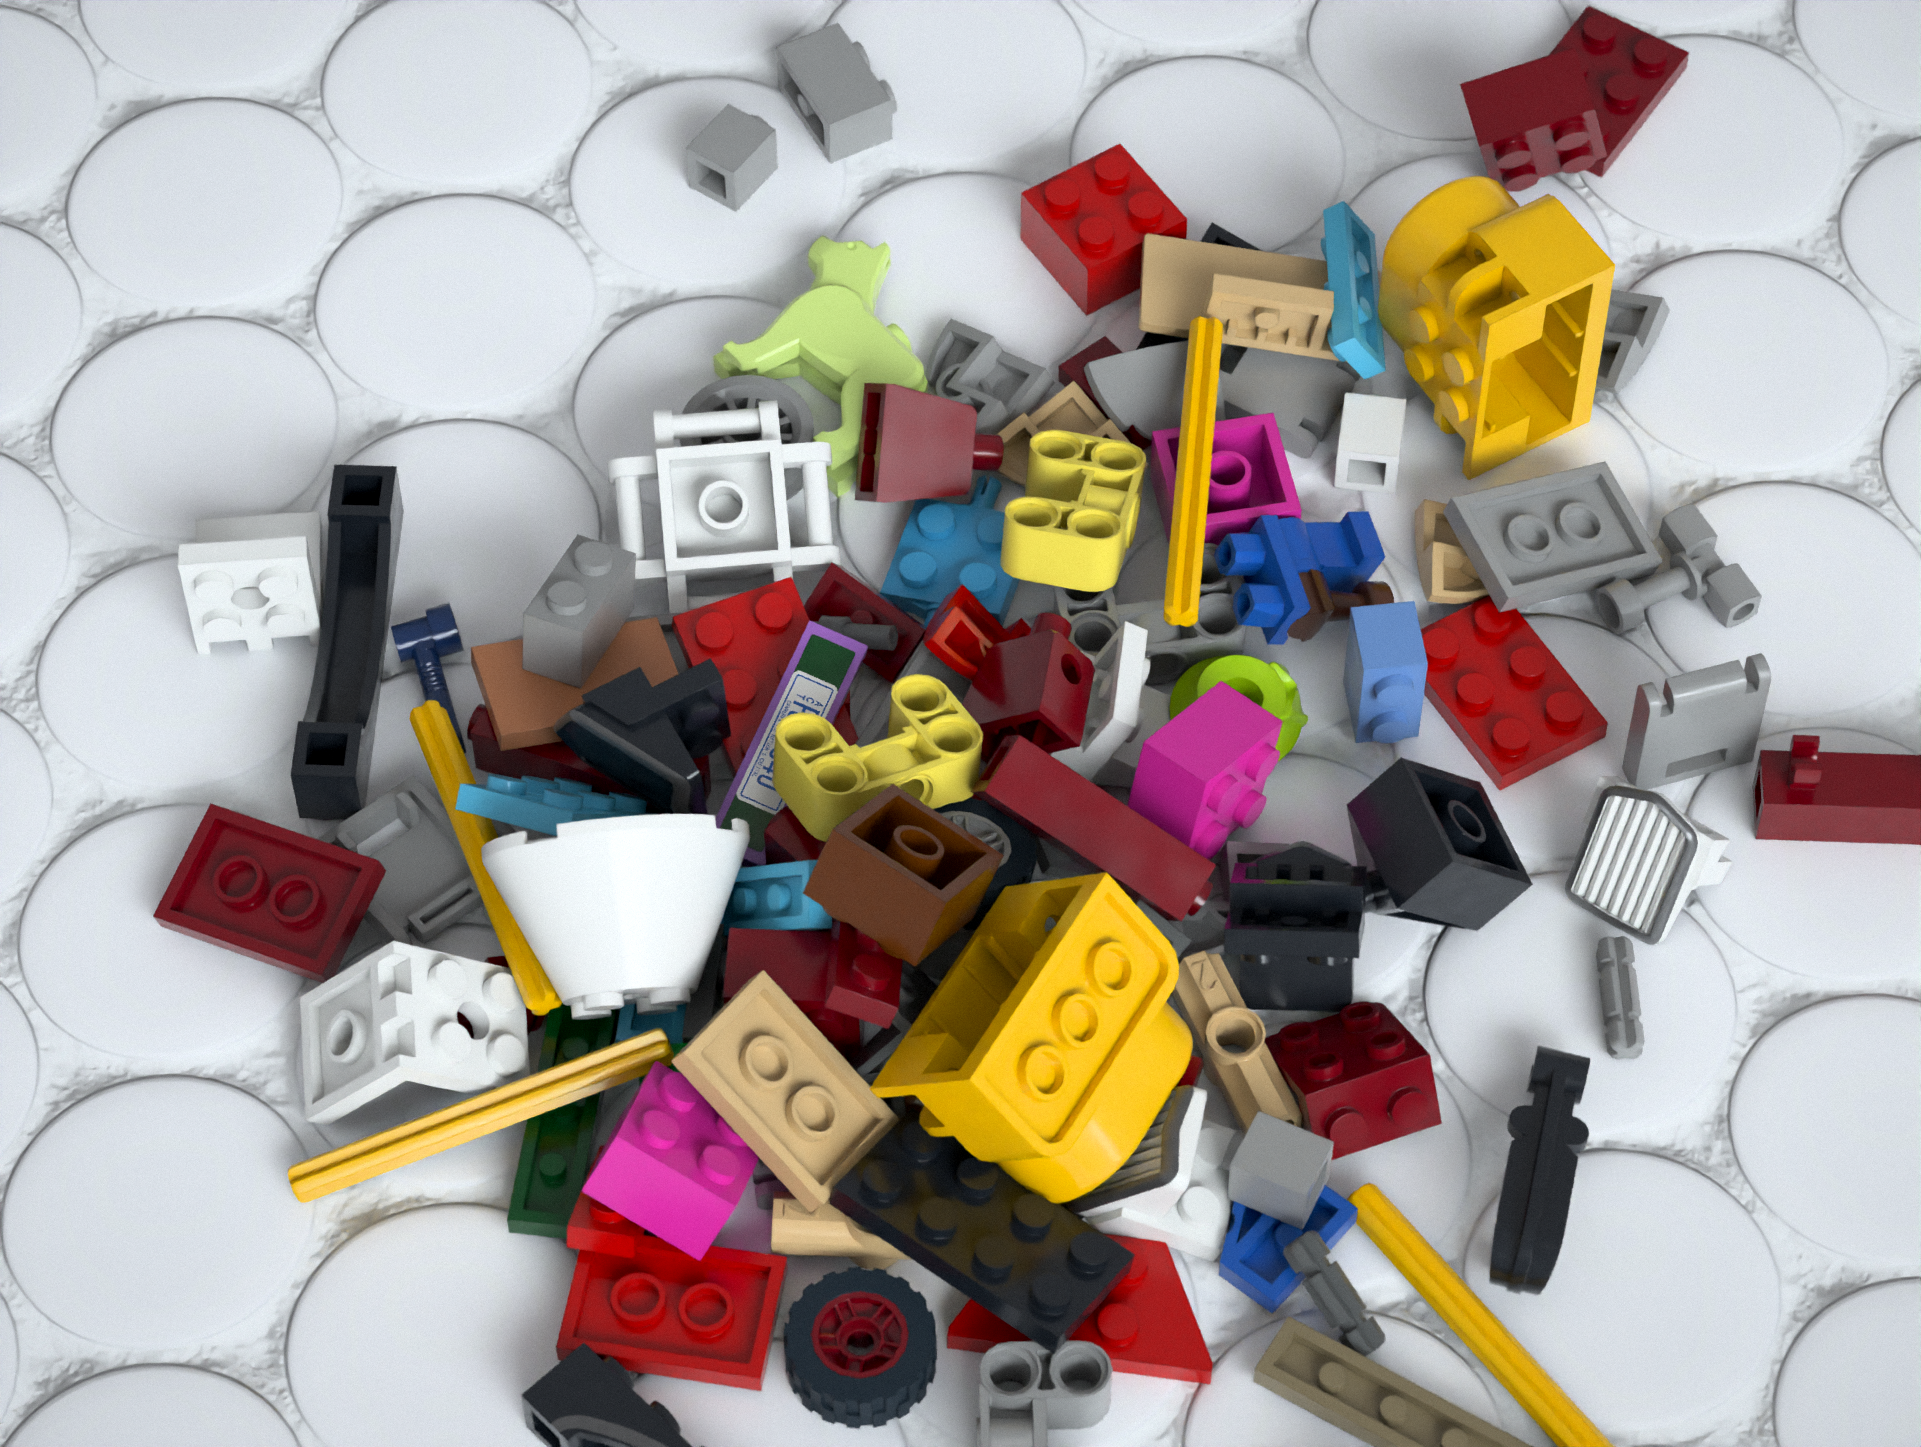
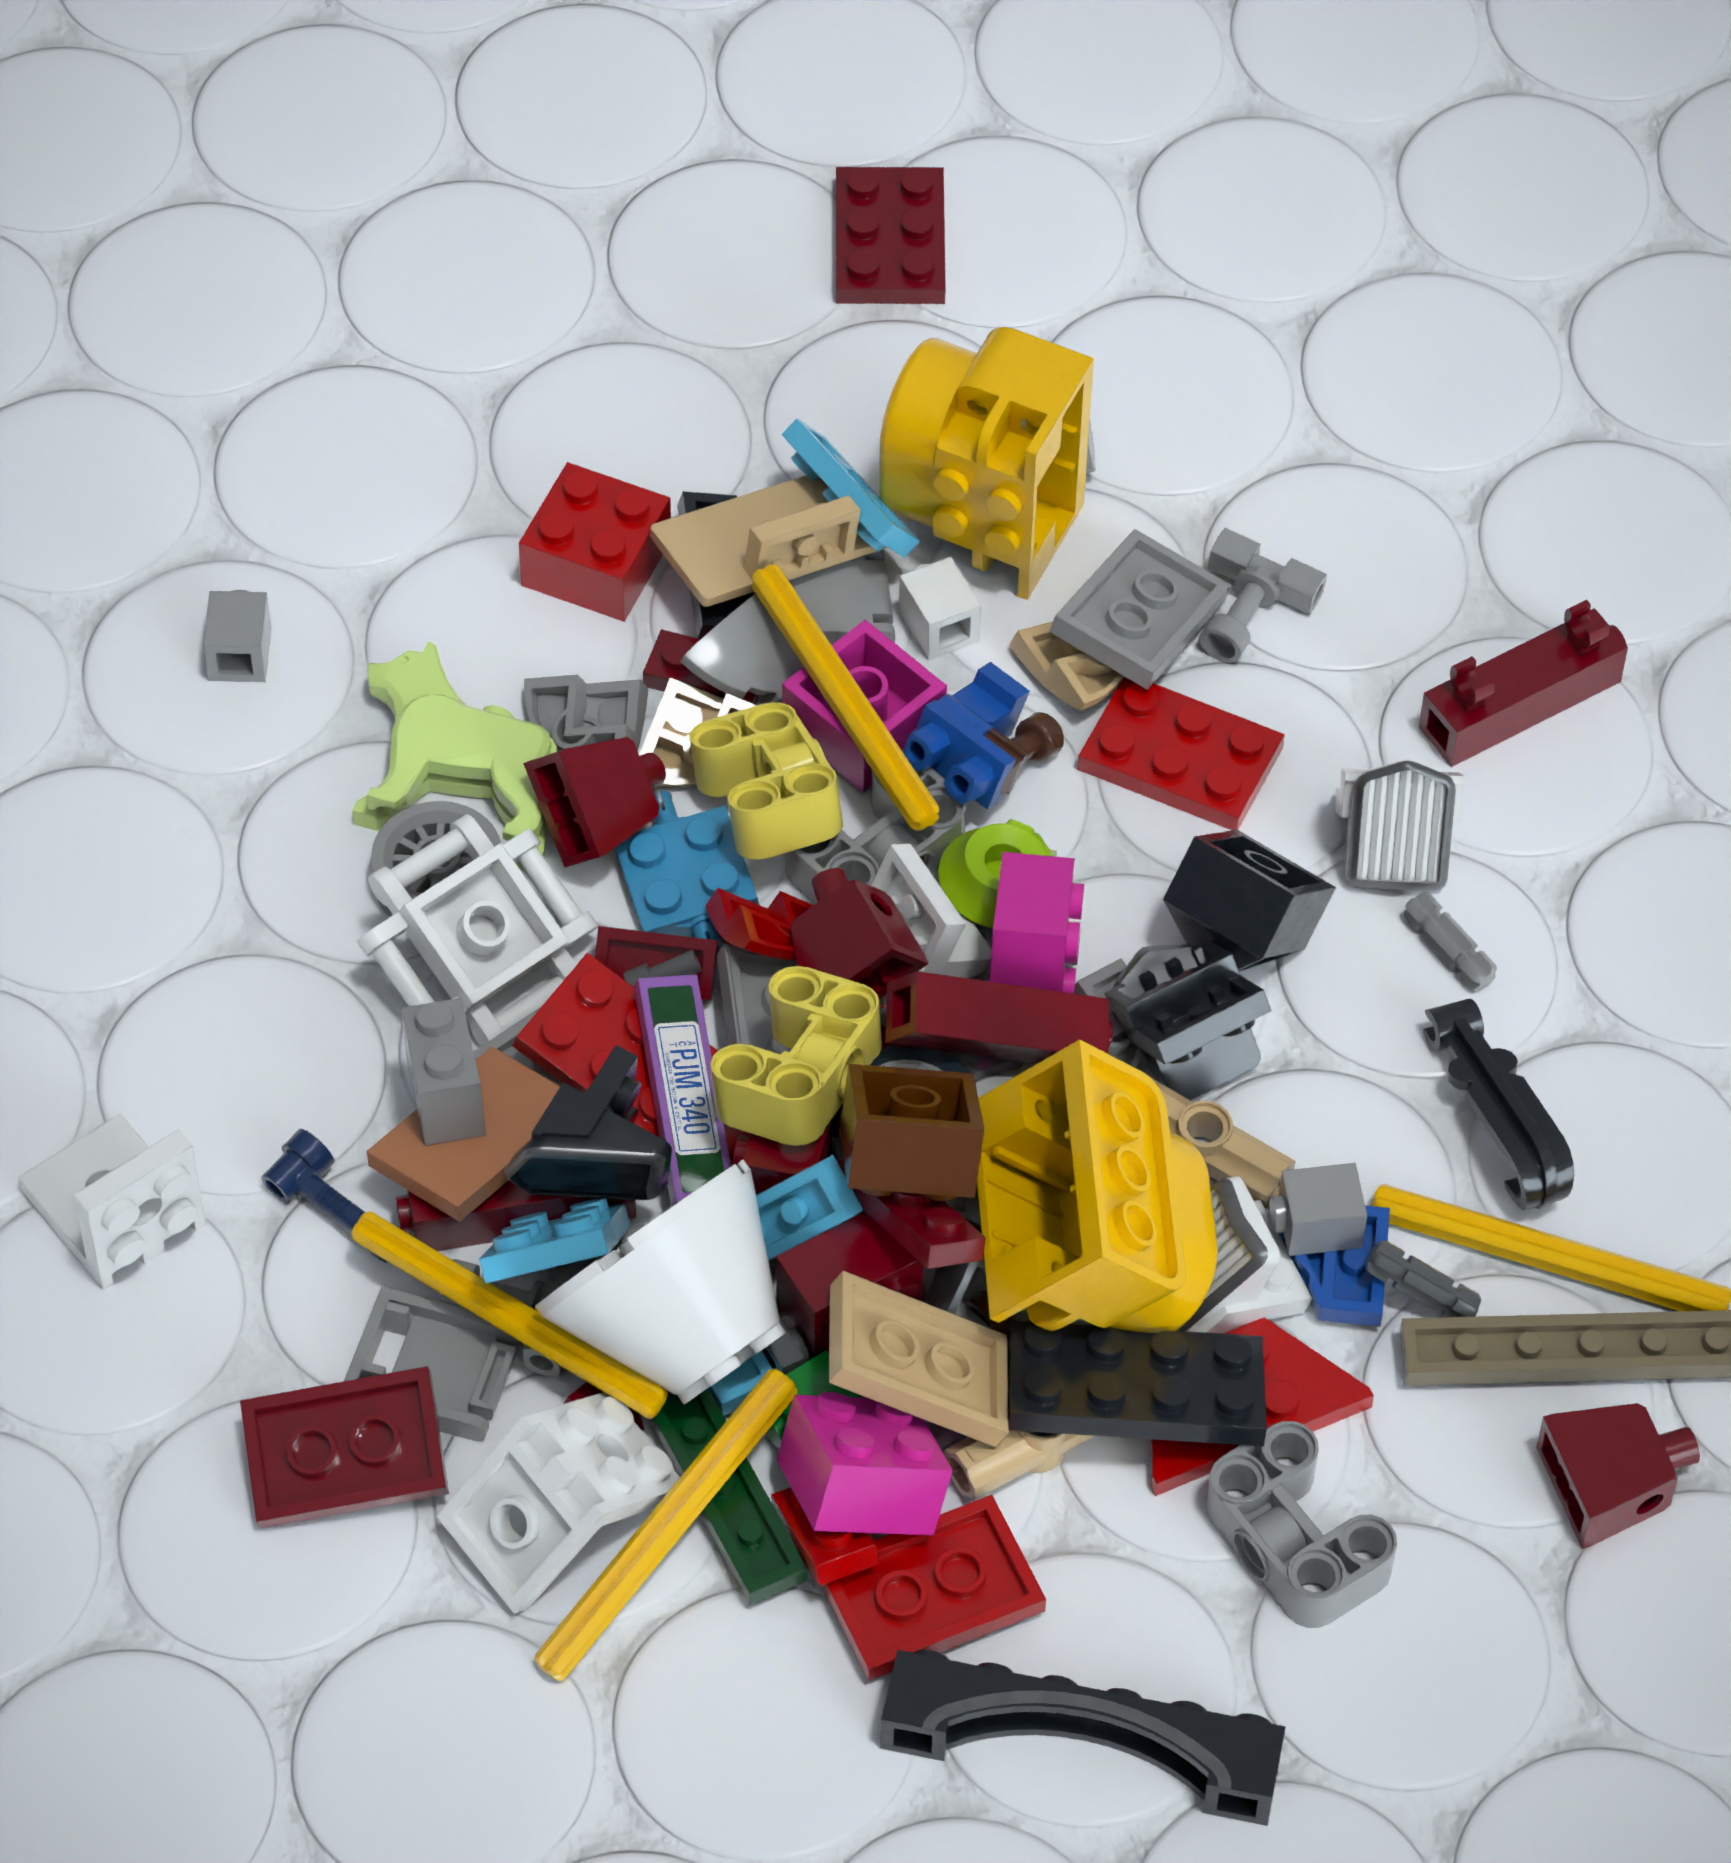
camera: 35 degrees left, 0 degrees up
(341, 715) = (281, 1269): black arch -> none
(835, 92) = (280, 538): light grey brick -> none
(860, 1311) = (1092, 1497): black wheel -> none
(1357, 1077) = (1311, 1103): dark red bracket -> none
(1385, 672) = (1101, 782): medium blue brick -> none
(1534, 120) = (886, 280): dark red brick -> none
(1703, 728) = (1366, 697): light grey container -> none

